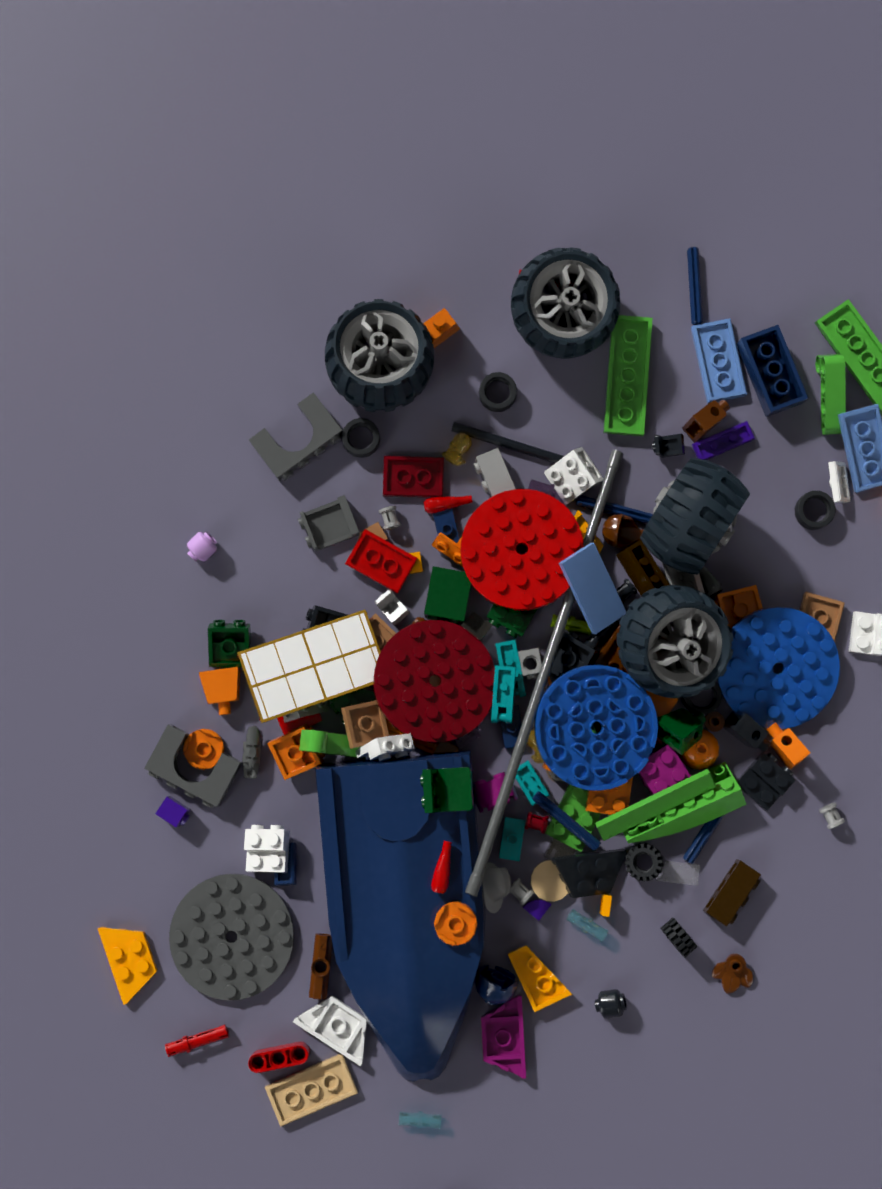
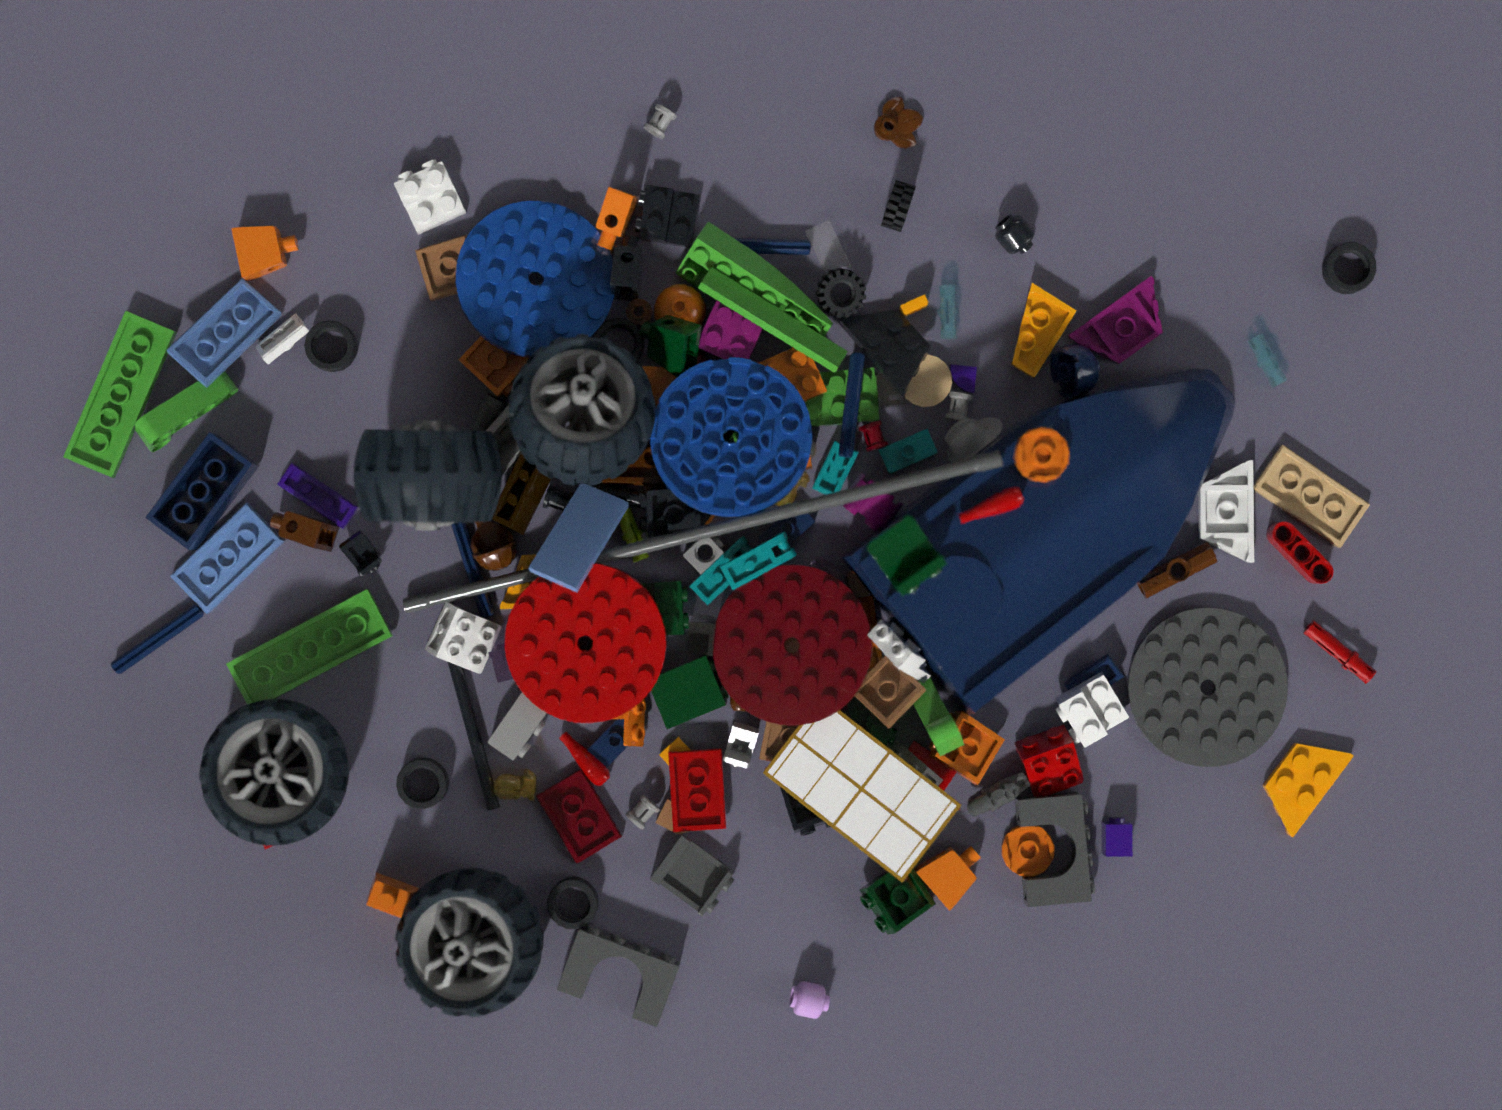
camera: 120 degrees left, 5 degrees up
(251, 800) = (1050, 761): none -> red bracket
(732, 893) = (813, 177): dark brown brick -> none

